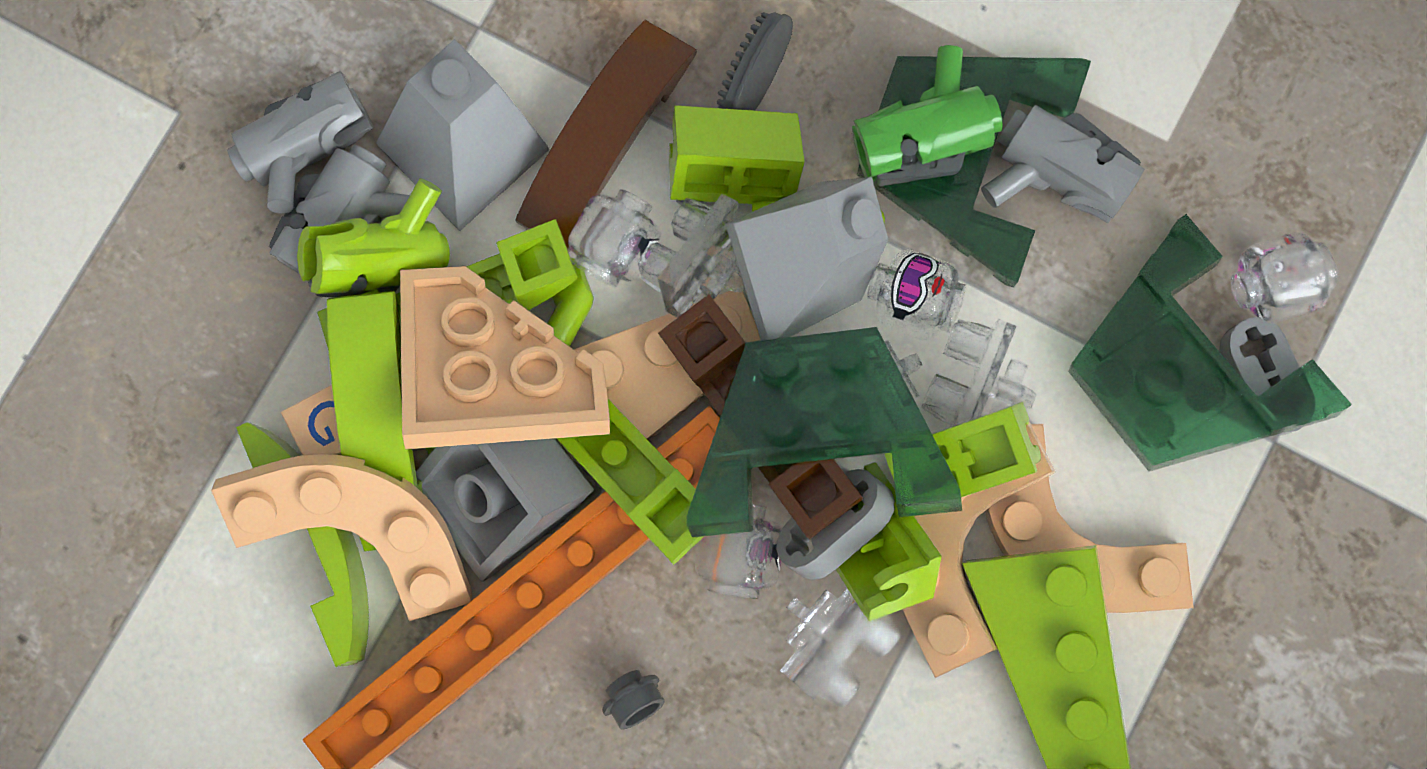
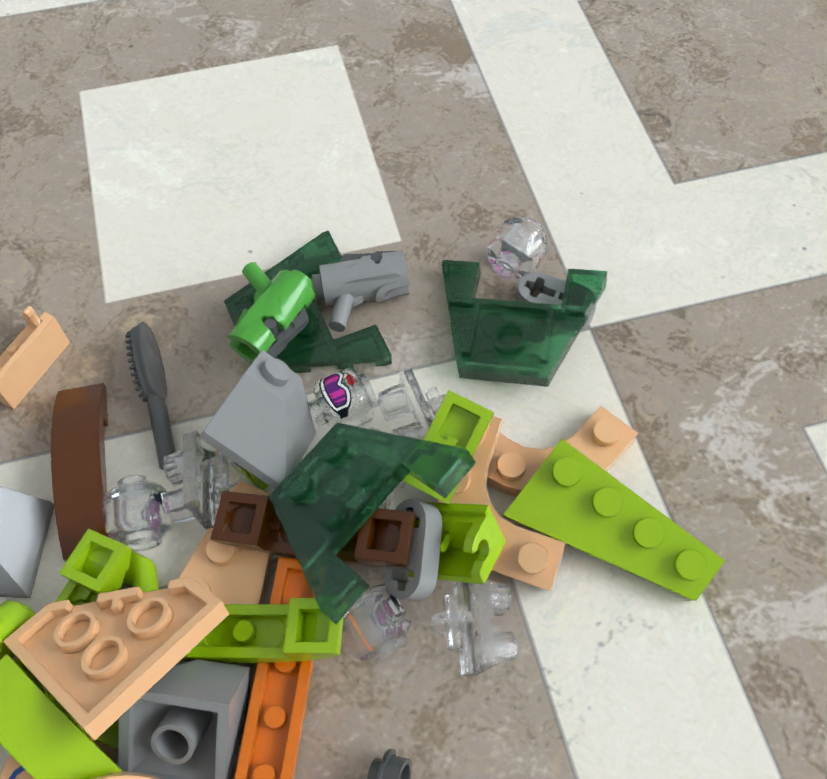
camera: 50 degrees left, 20 degrees down
(734, 154) = (171, 410): lime hinge -> none

